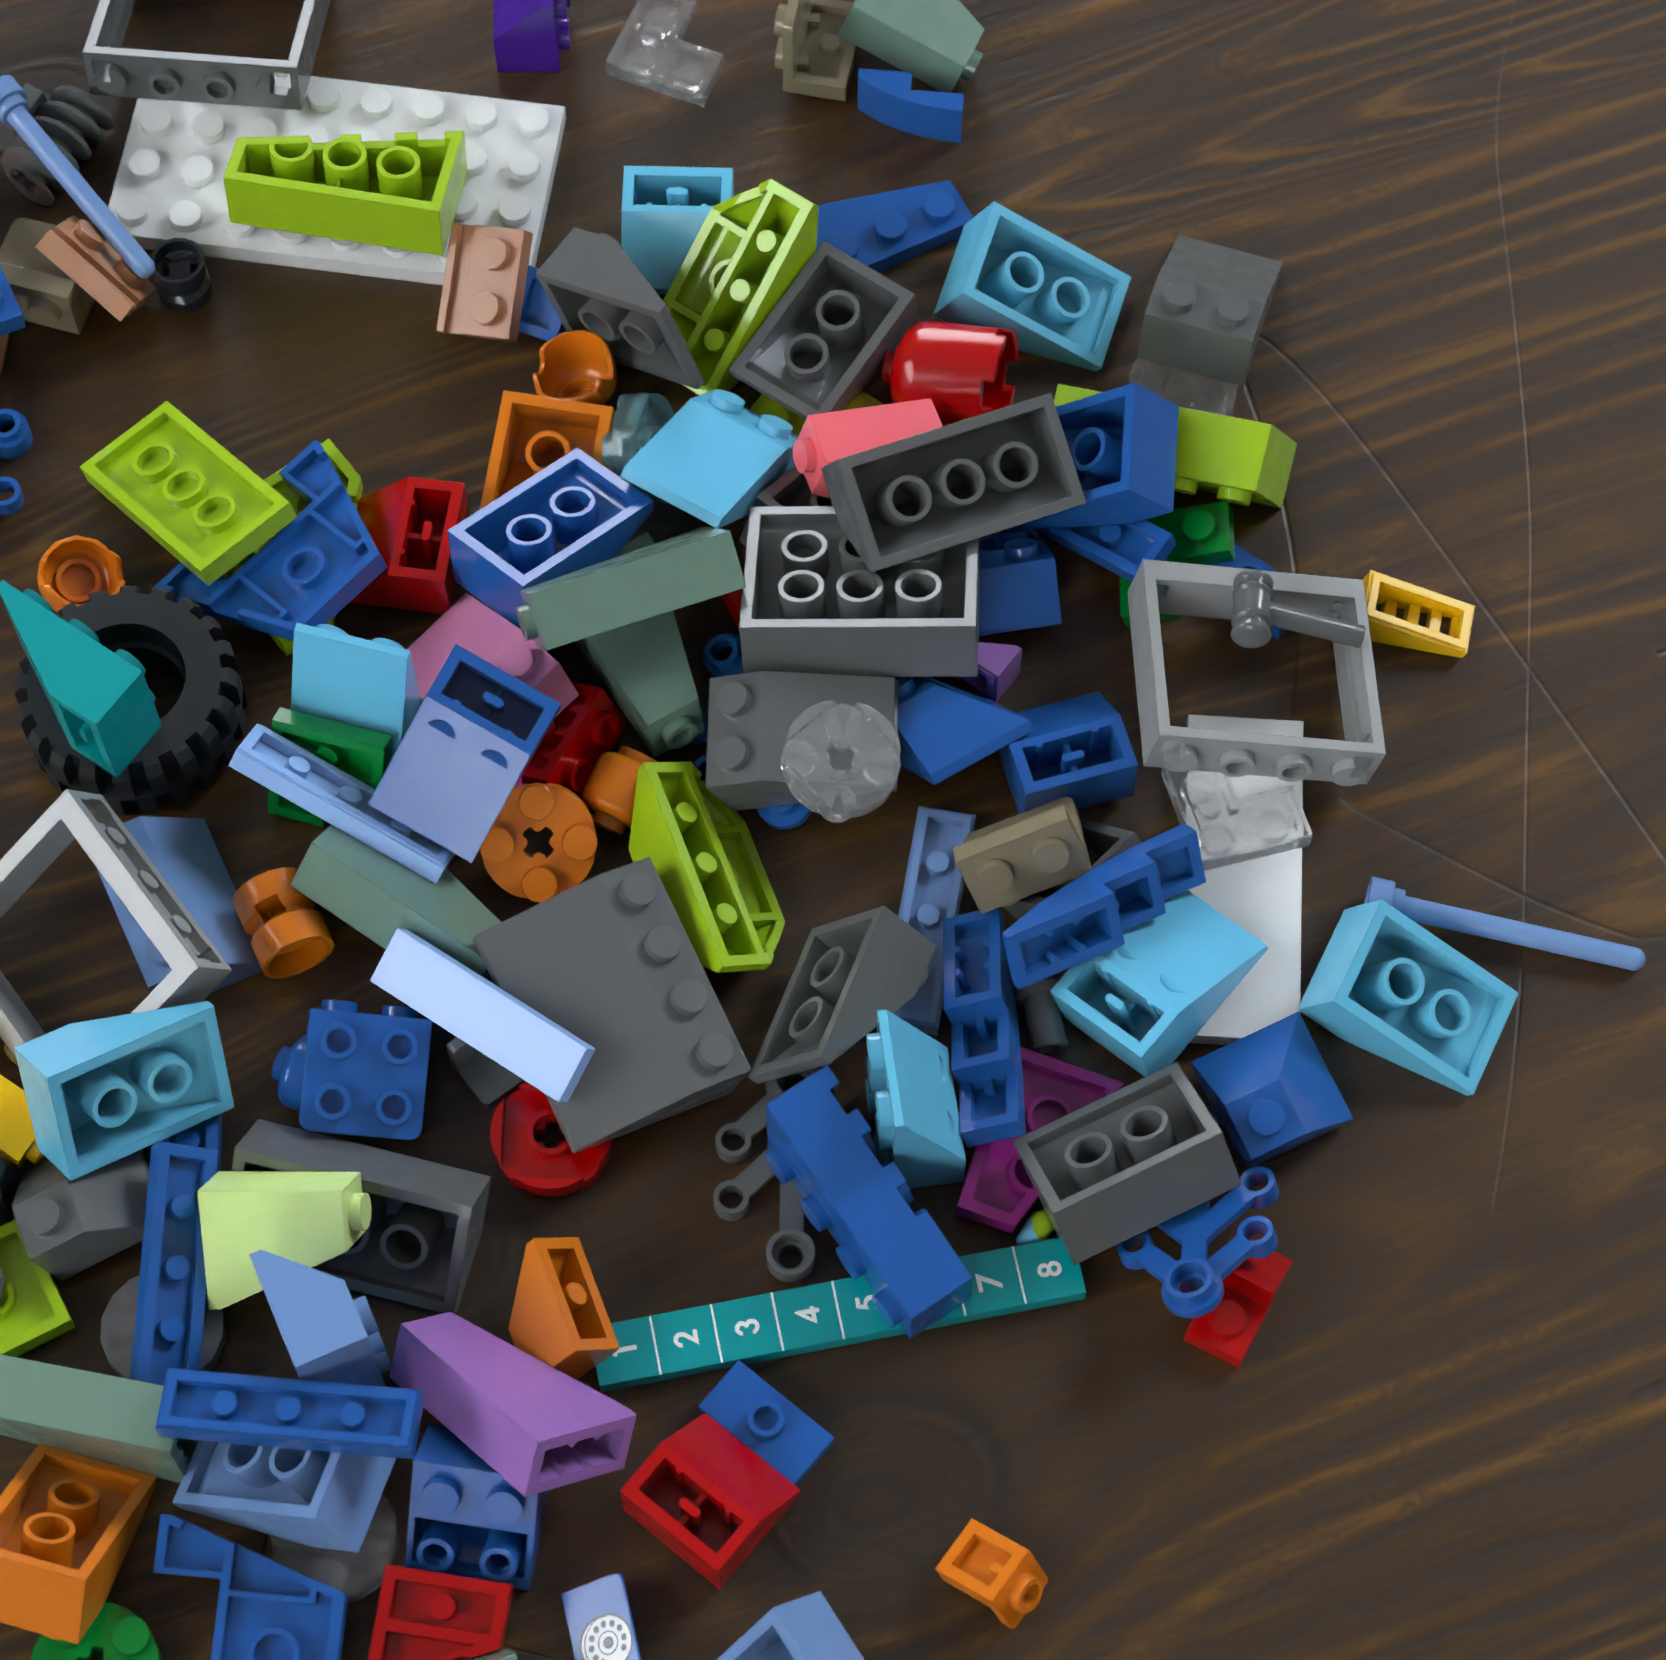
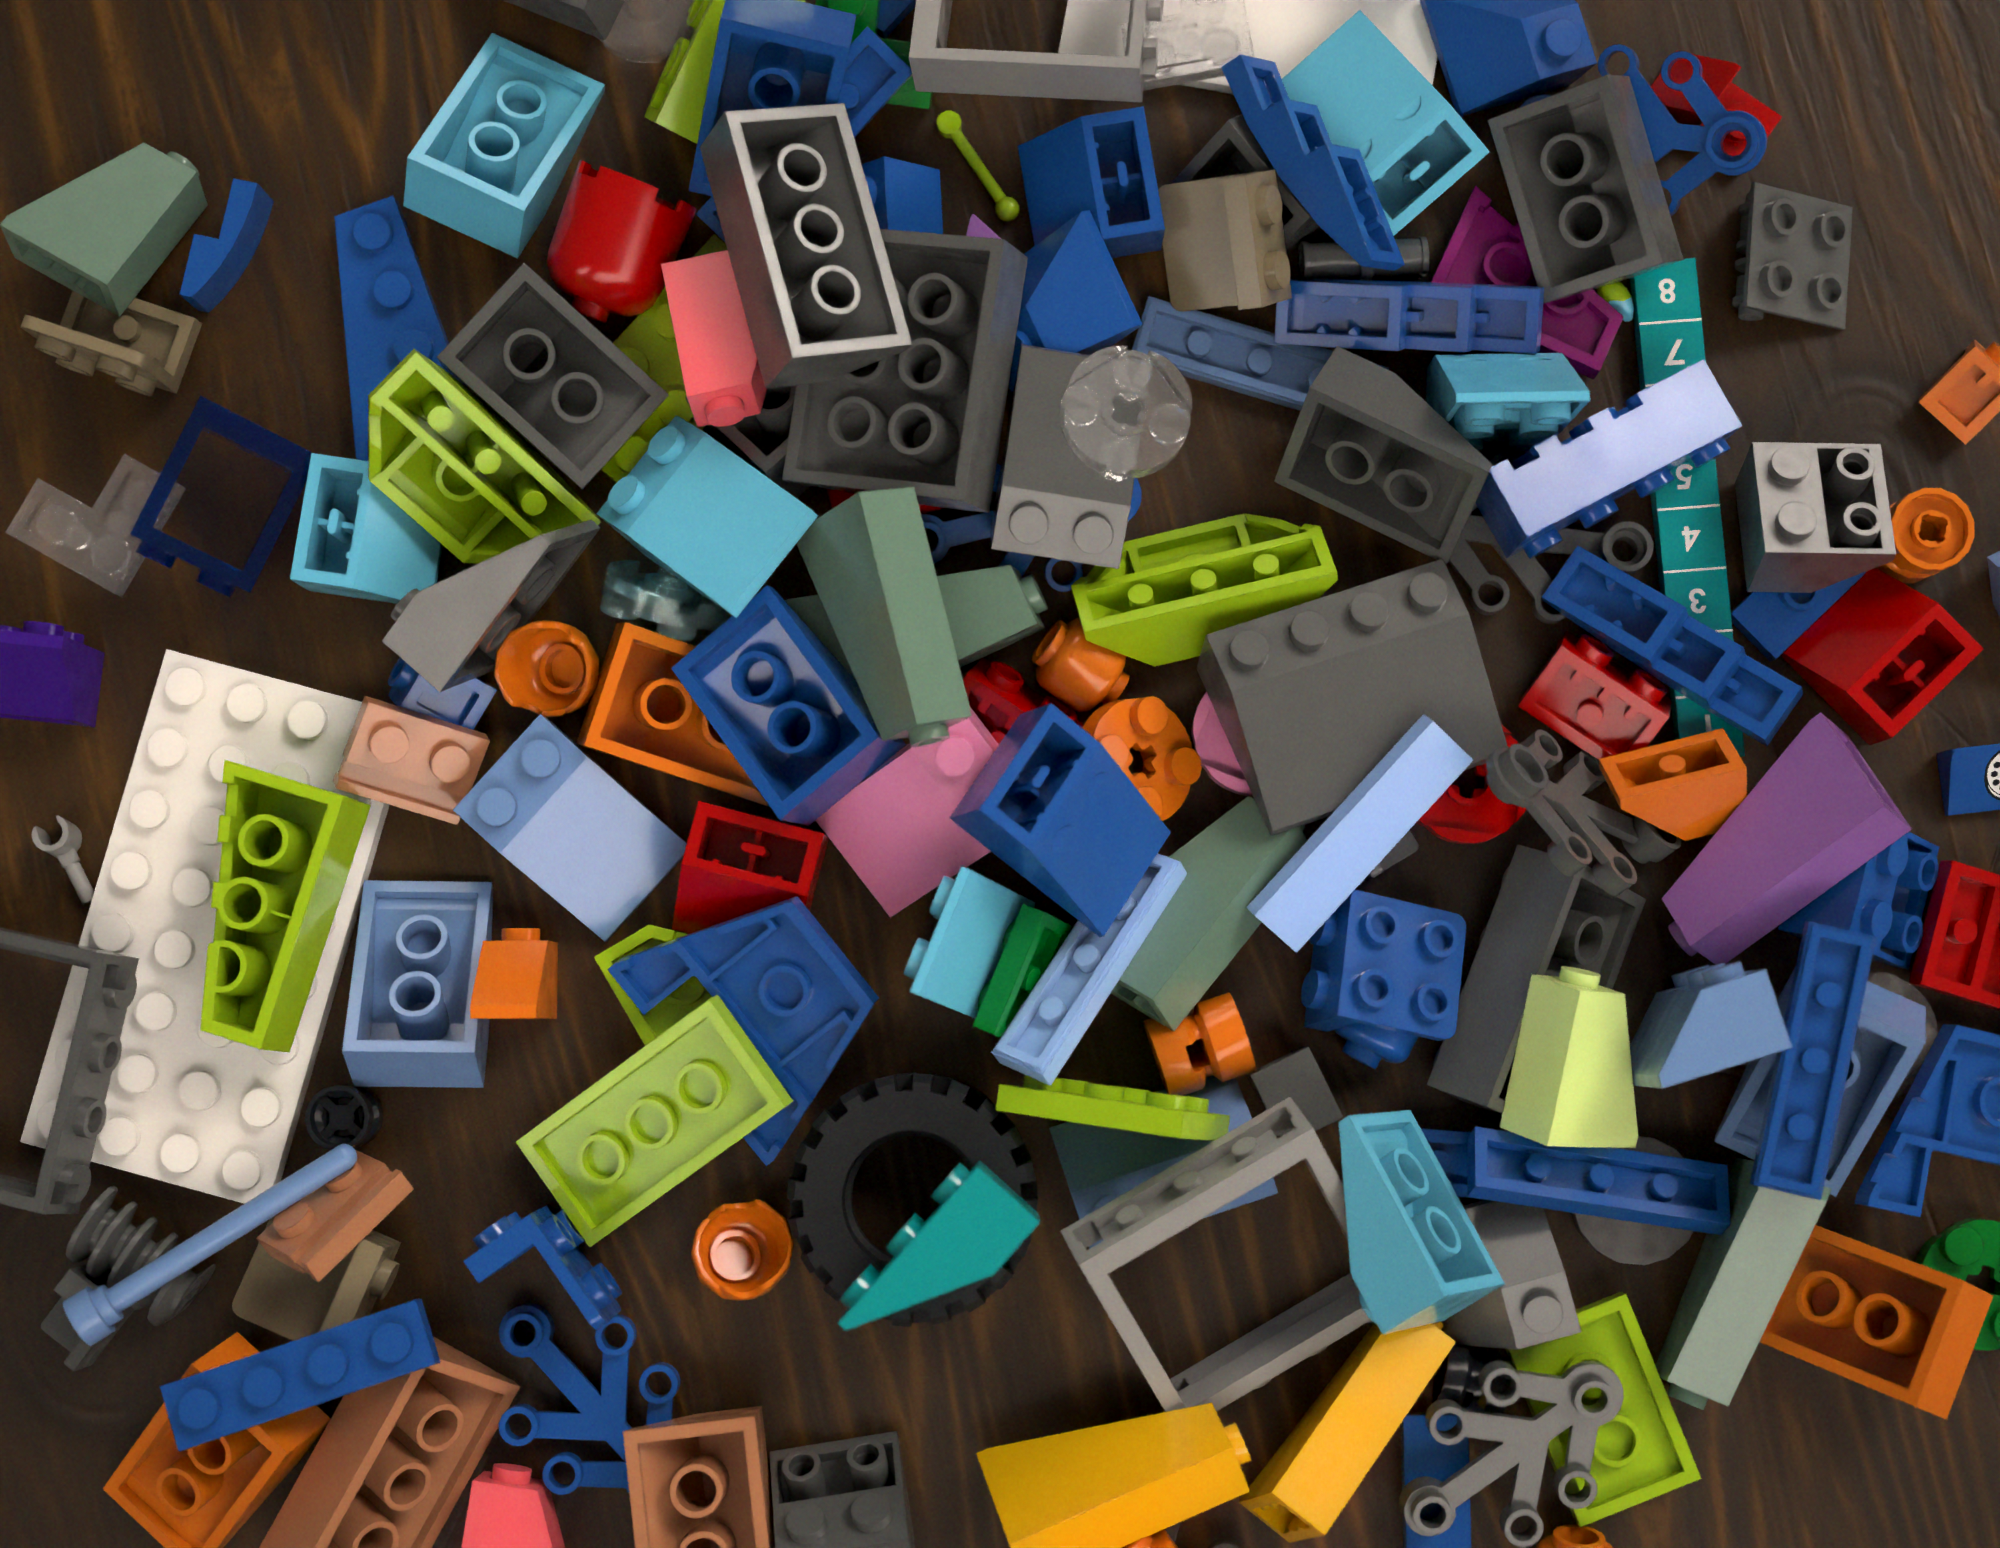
camera: 80 degrees left, 20 degrees up
(64, 435) = (558, 1242): none -> blue bracket
(211, 833) = (1114, 1108): none -> lime plate
(248, 1011) = (1301, 1079): none -> dark grey panel
(295, 316) = (416, 985): none -> medium blue slope
(302, 379) = (516, 977): none -> orange slope
(397, 59) = (66, 852): none -> light grey hand
(439, 404) = (572, 828): none -> medium blue slope
(525, 1199) = (1521, 778): none -> dark grey plant
(643, 1242) = (1596, 699): none -> red bracket
(695, 1298) = (1672, 645): none -> blue slope
(745, 132) = (251, 439): none -> clear blue window
(832, 1521) = (1930, 534): none -> orange wheel
(837, 1402) = (1812, 514): none -> flat silver slope
(1101, 1386) = (1793, 257): none -> dark grey hinge
(1111, 642) = (950, 126): none -> lime hinge

